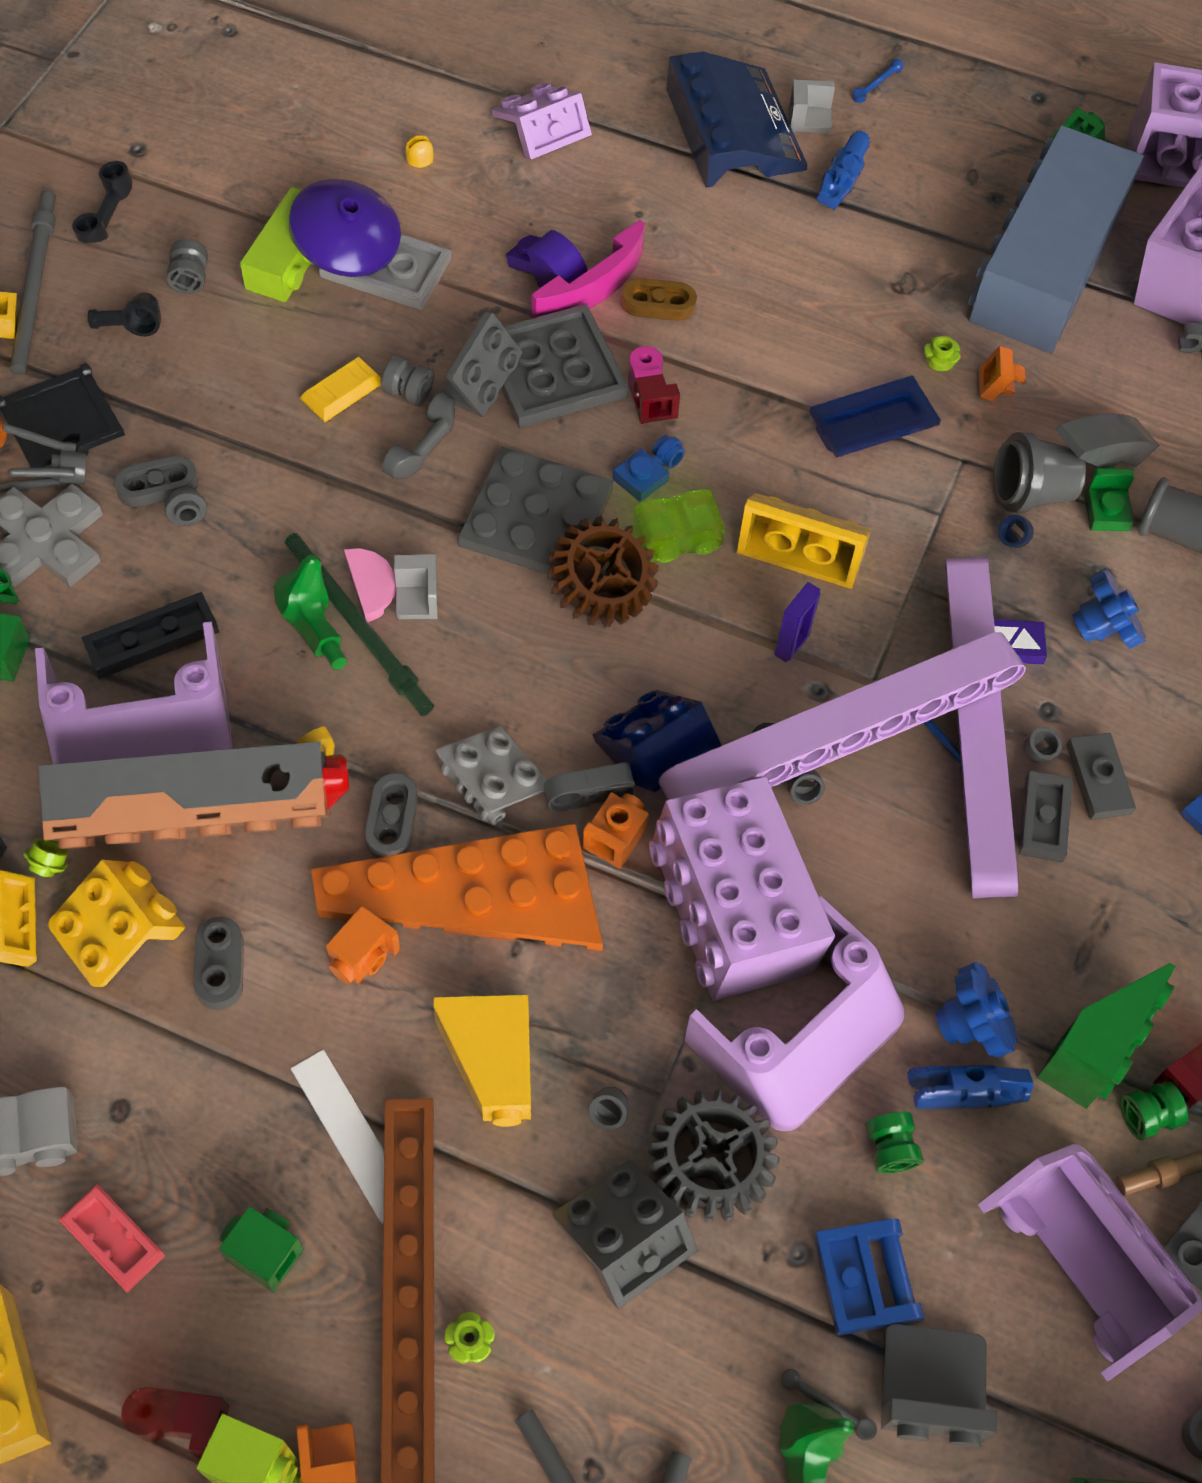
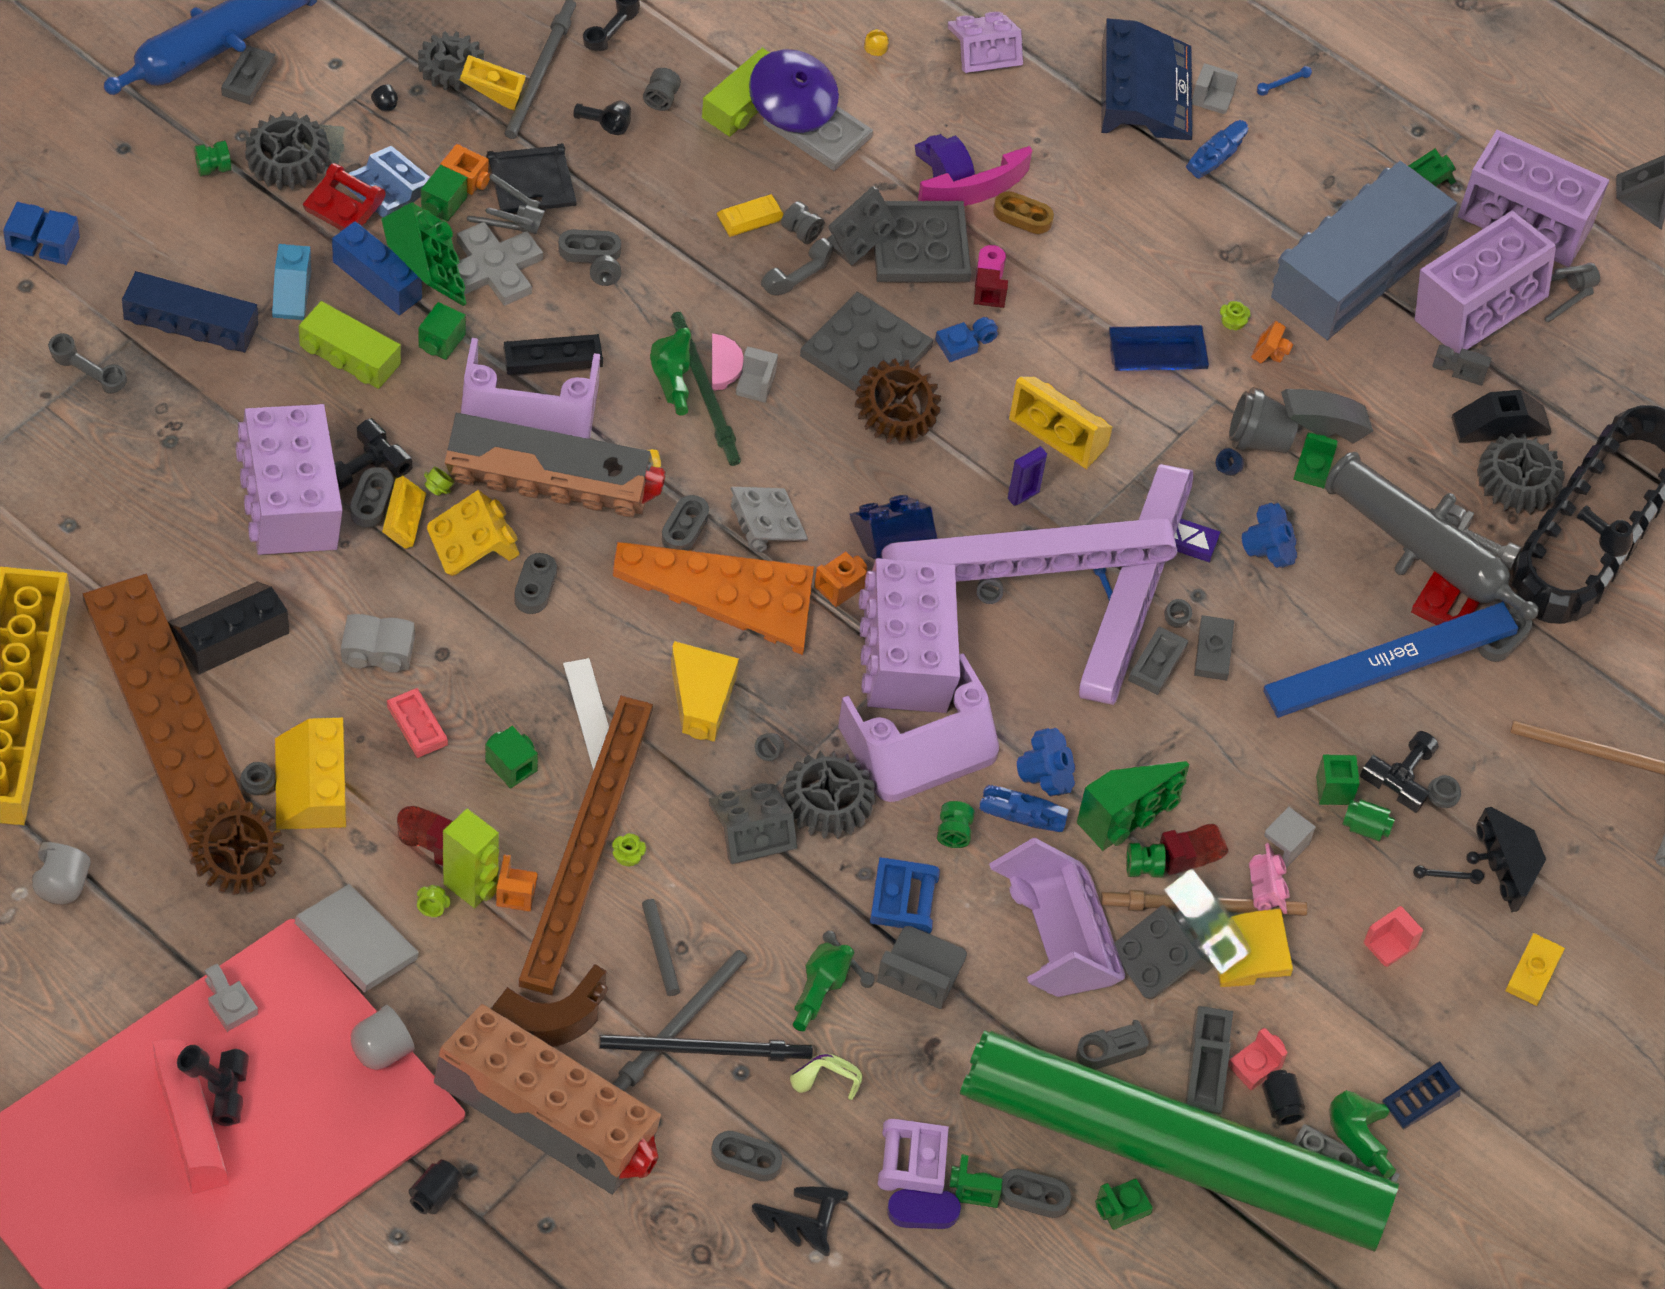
camera: 15 degrees right, 5 degrees down
(361, 947) = (636, 599): orange brick -> none
(588, 786) = (831, 544): dark grey piece -> none
(680, 525) = (970, 385): clear neon green brick -> none

